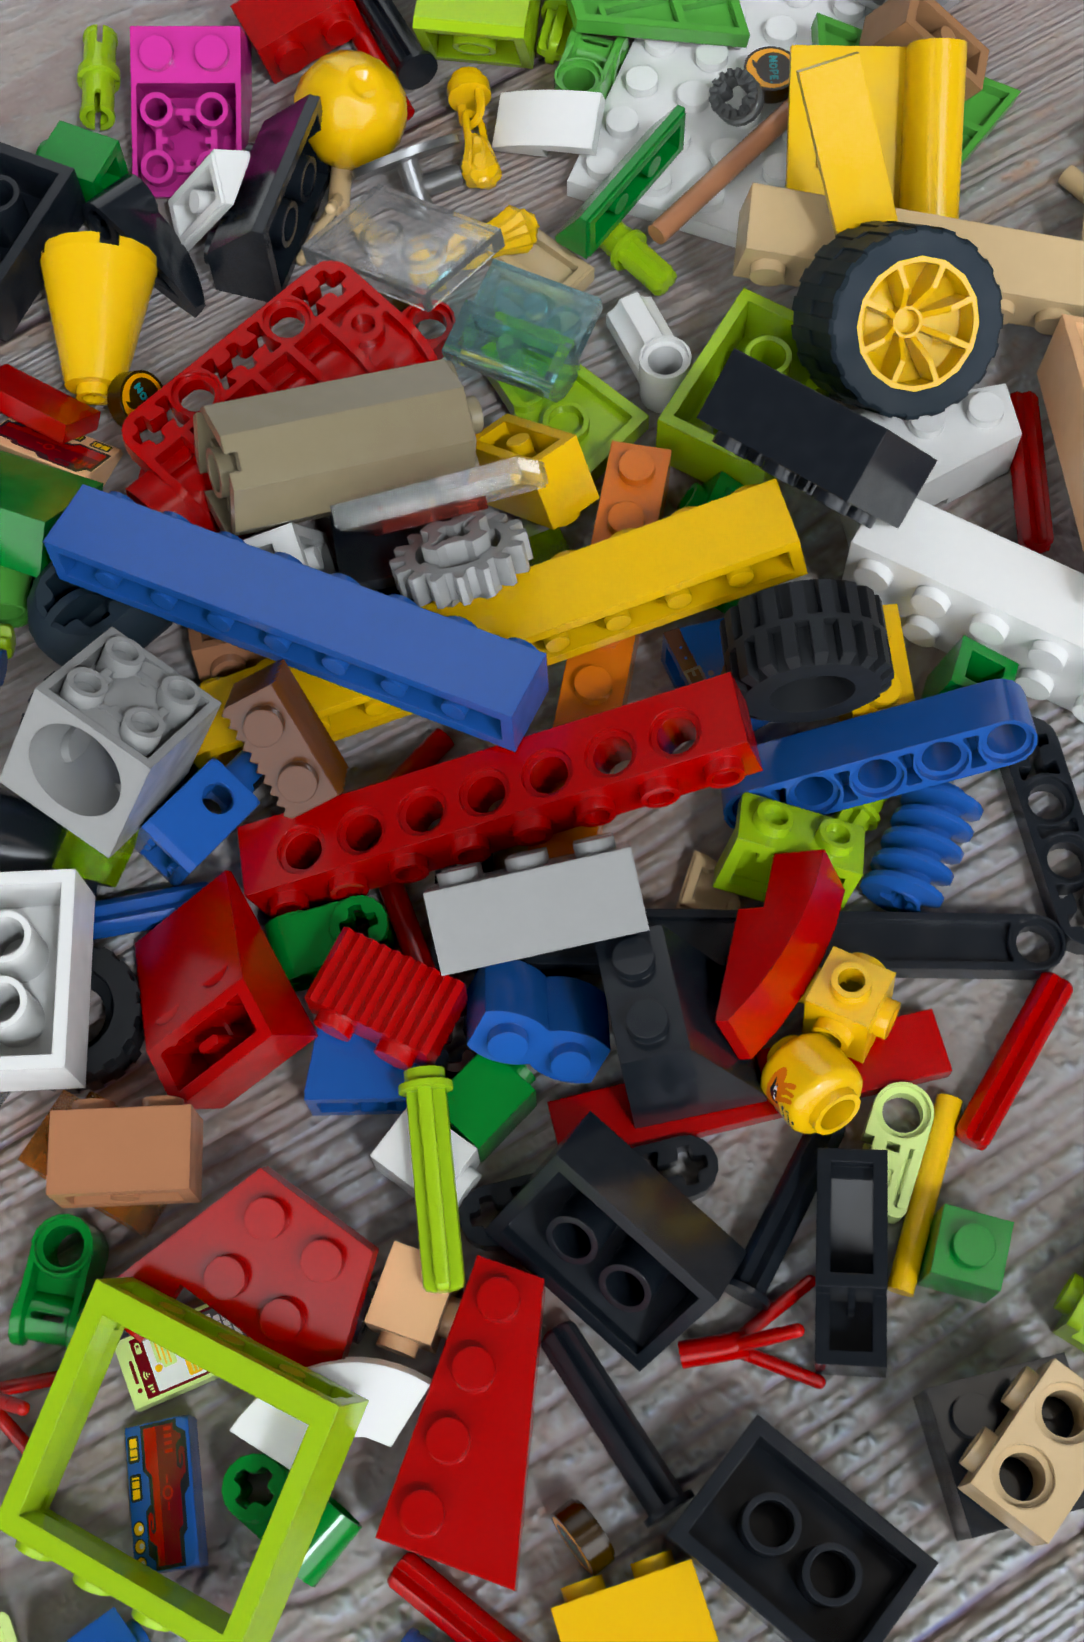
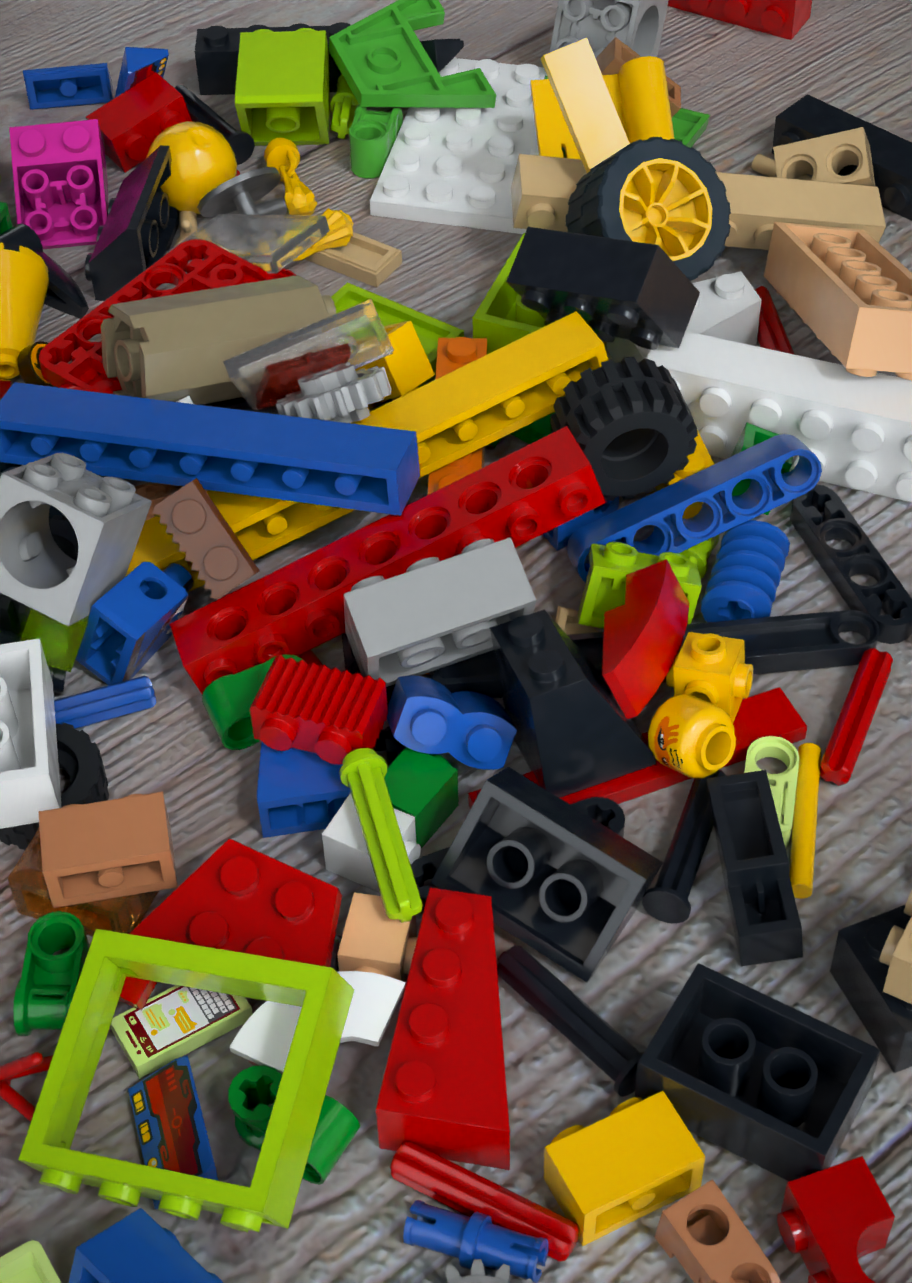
camera: 10 degrees left, 20 degrees down
(207, 194) = (83, 226): white slope -> none
(216, 999) = (172, 741): red slope -> none
(524, 331) = (360, 271): clear light blue brick -> none
(548, 121) = (349, 160): white slope -> none
(583, 1536) = (561, 1102): dark brown tile -> none
(624, 185) = (417, 189): green slope -> none
(630, 251) = (426, 236): lime axle -> none
(649, 349) = (453, 290): white piece -> none
(720, 175) = (488, 180): nougat bar -> none
(723, 91) = (481, 130): dark grey bush -> none
(742, 1343) = (668, 946): red plant -> none
(771, 69) = (515, 118): dark brown tile -> none
(966, 1254) = (849, 846): green brick -> none

